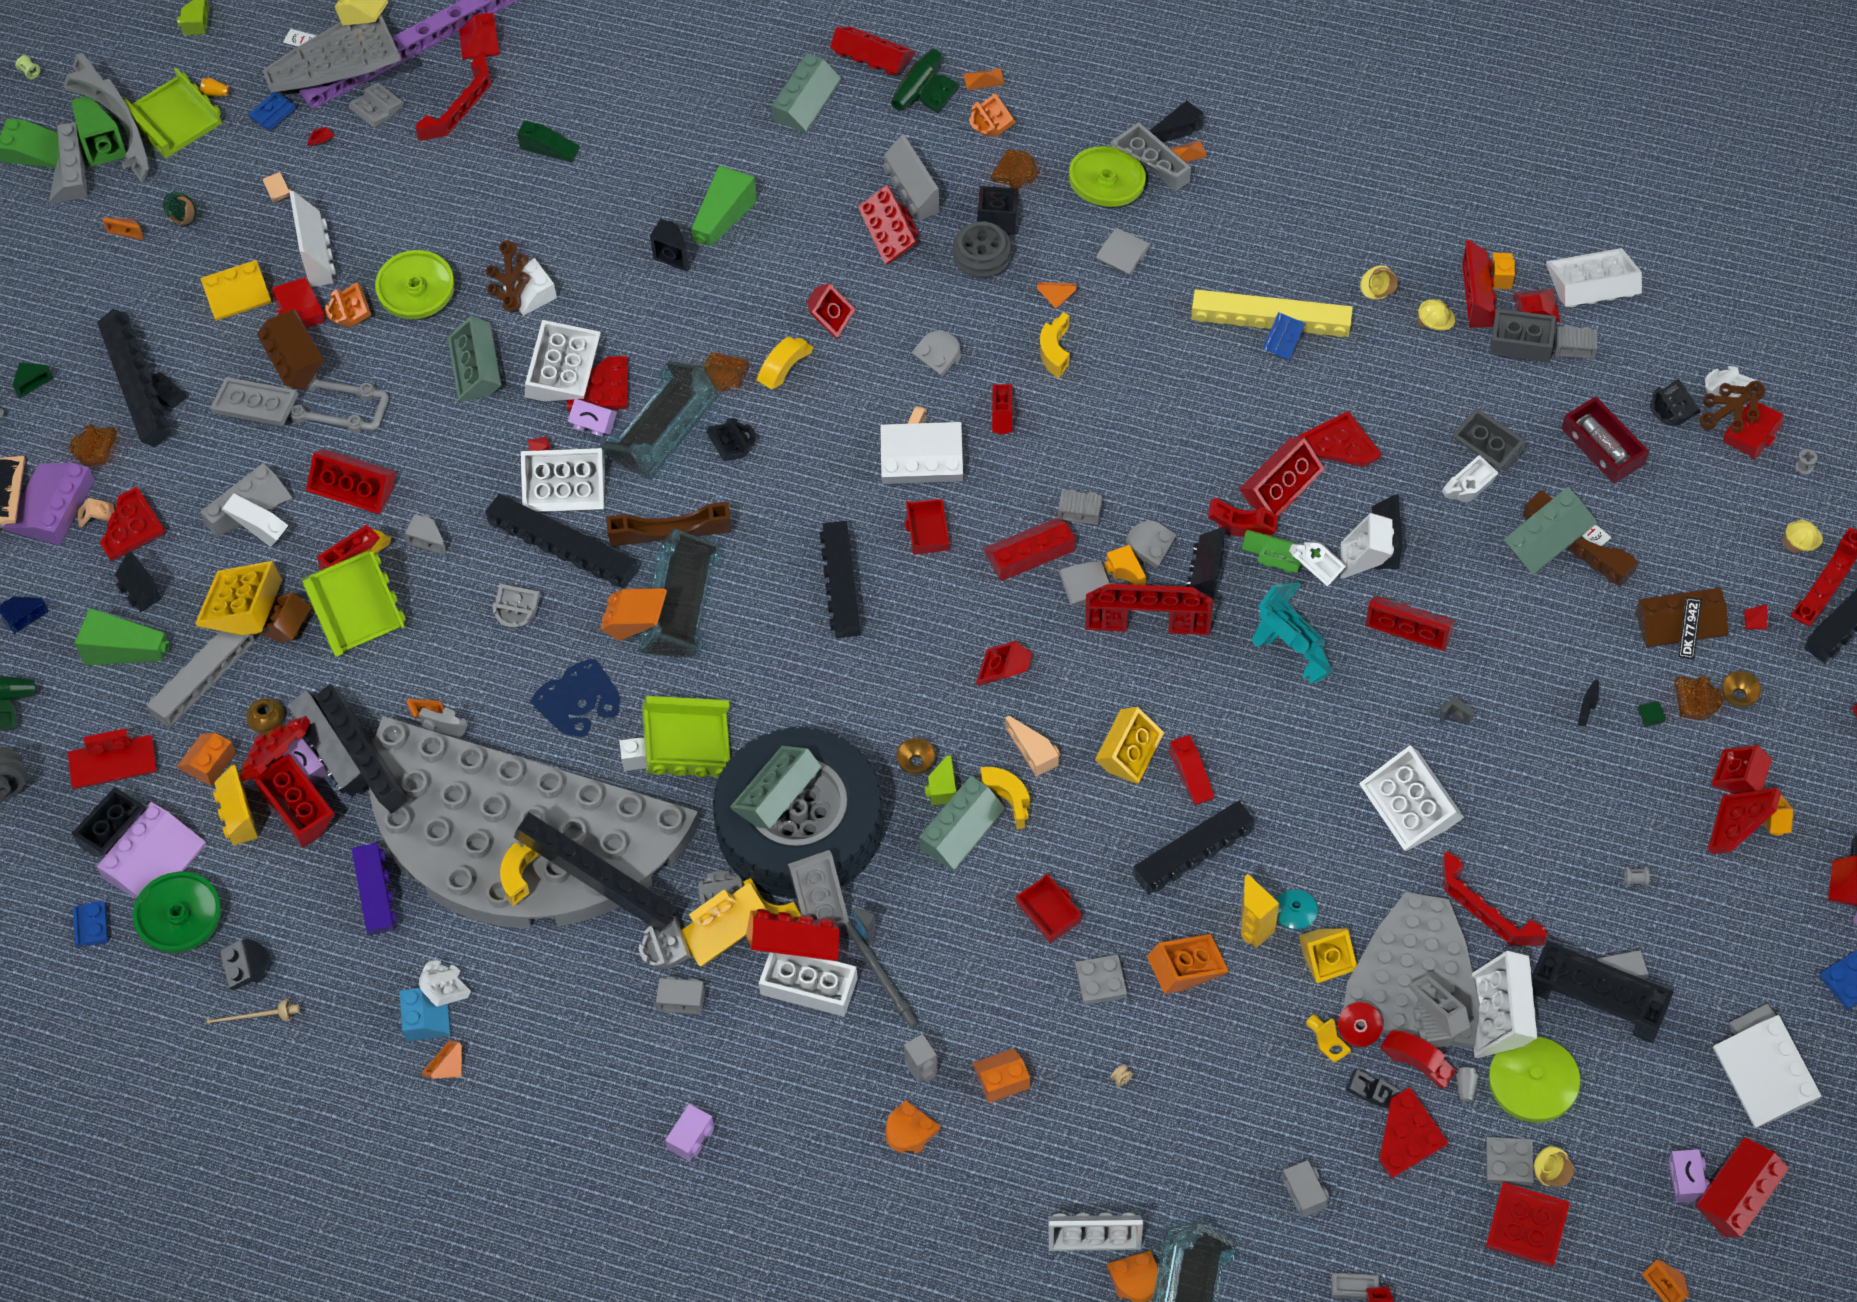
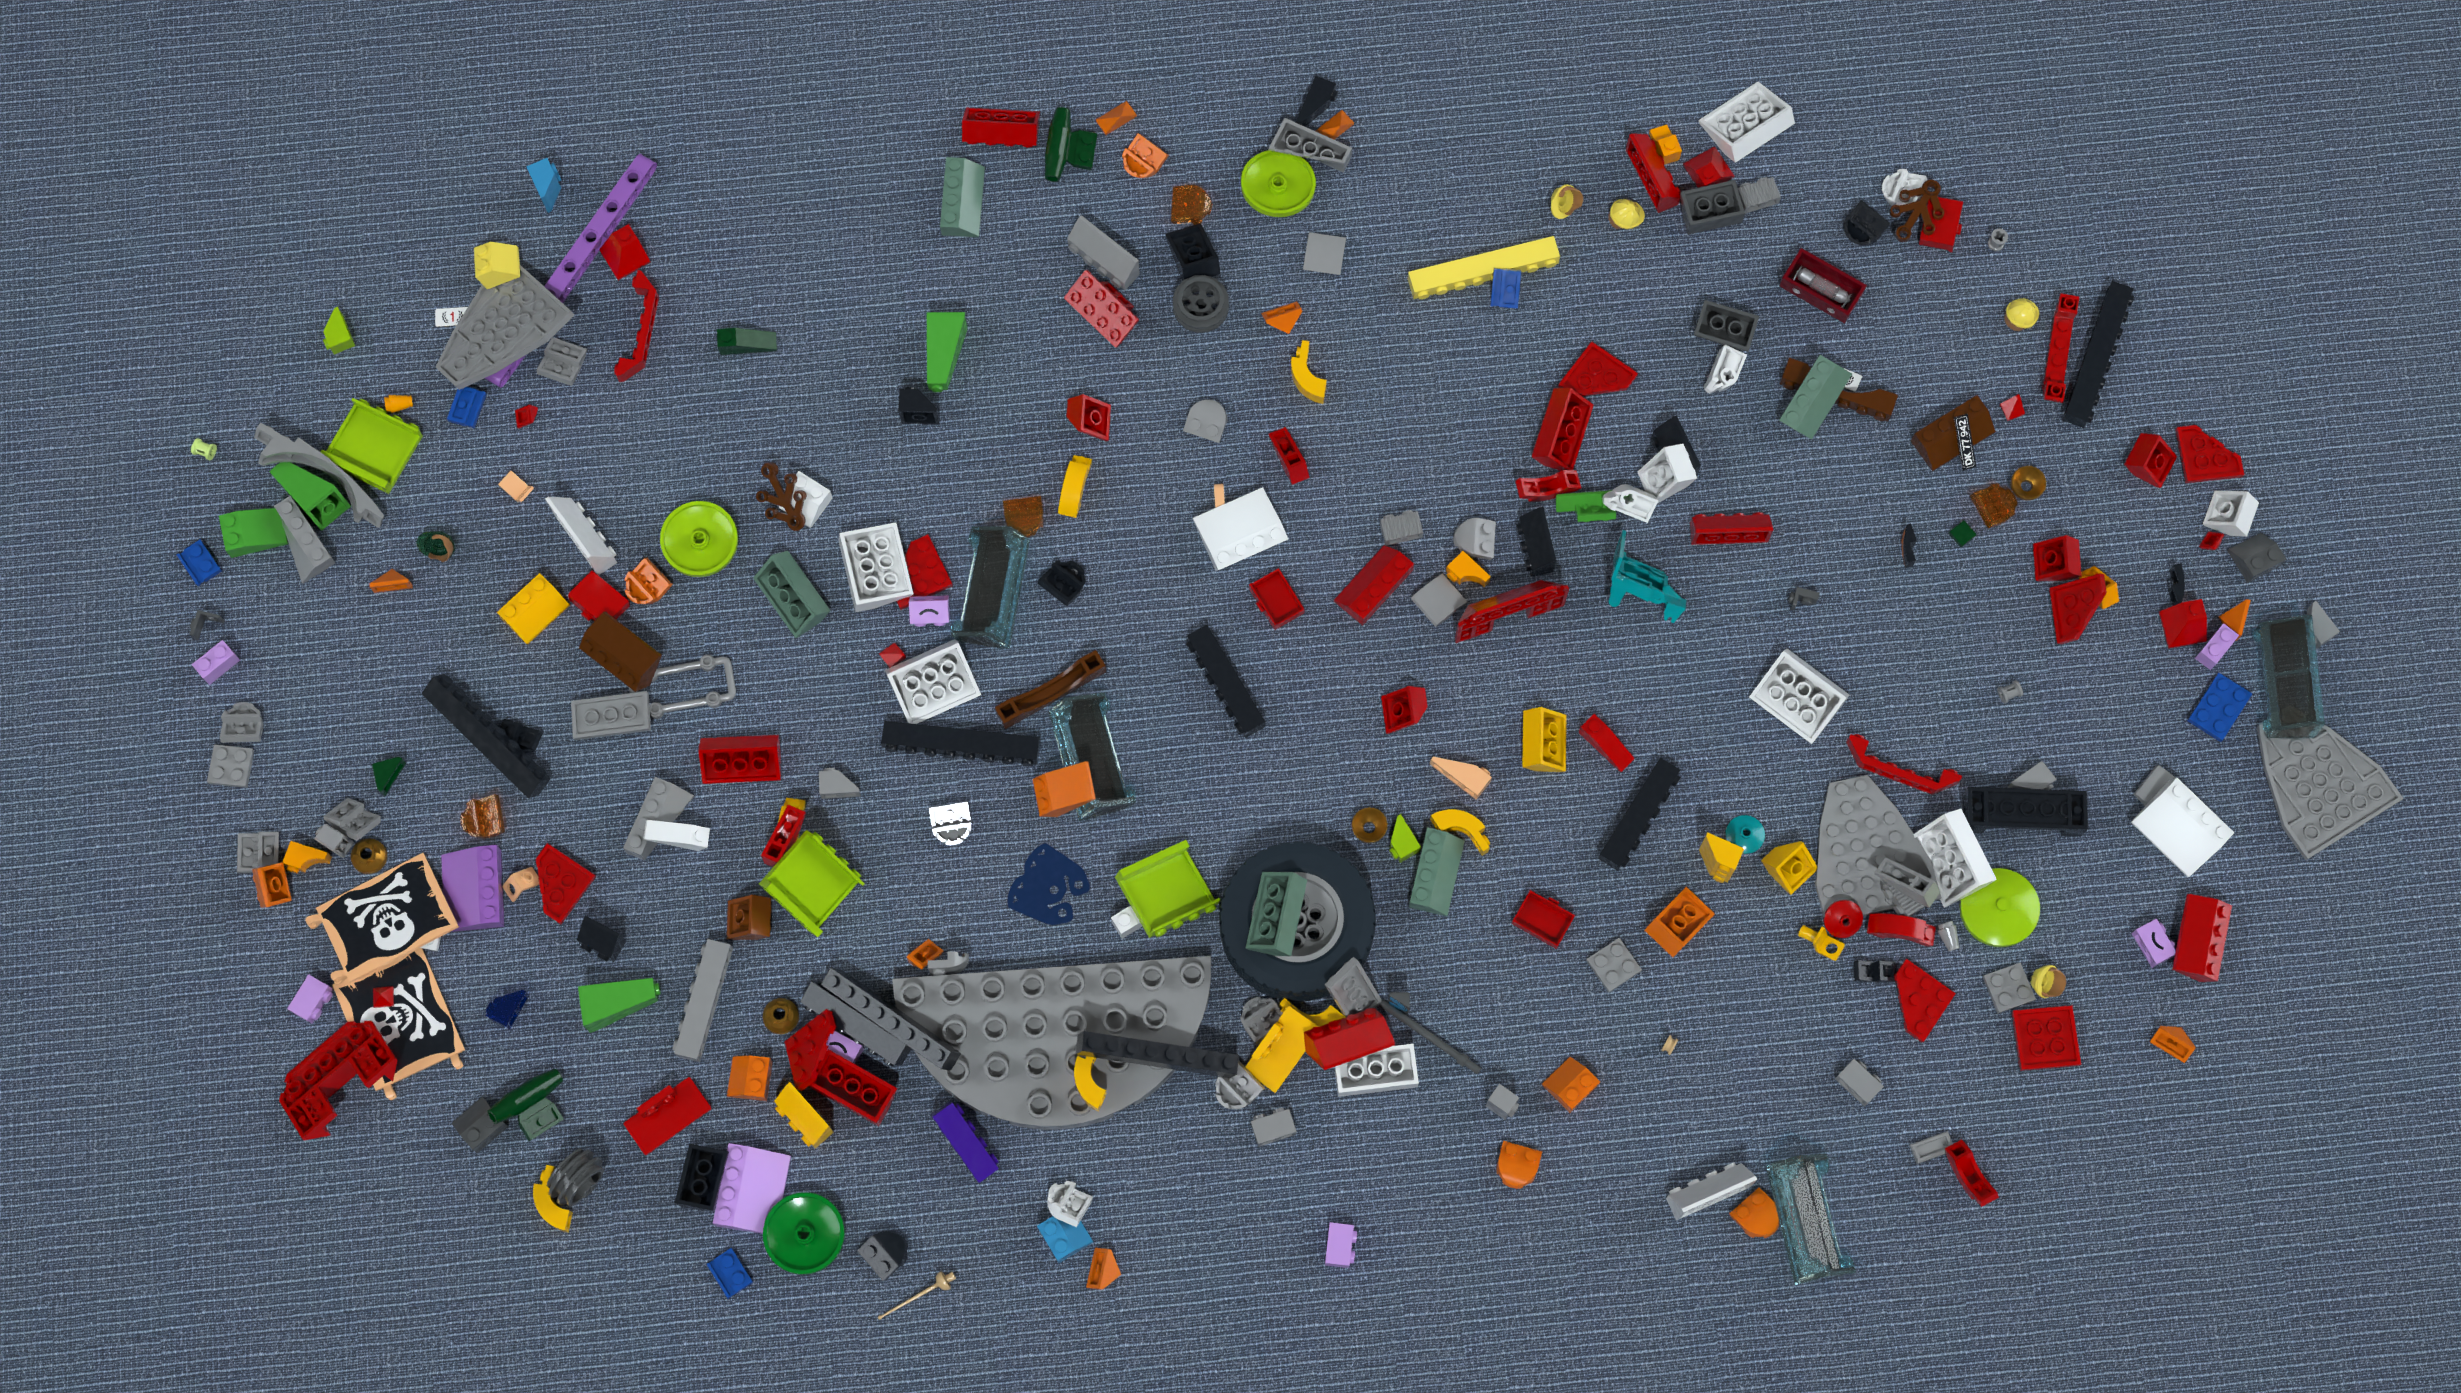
camera: 25 degrees left, 15 degrees up
(240, 599) = (704, 918): yellow slope -> none

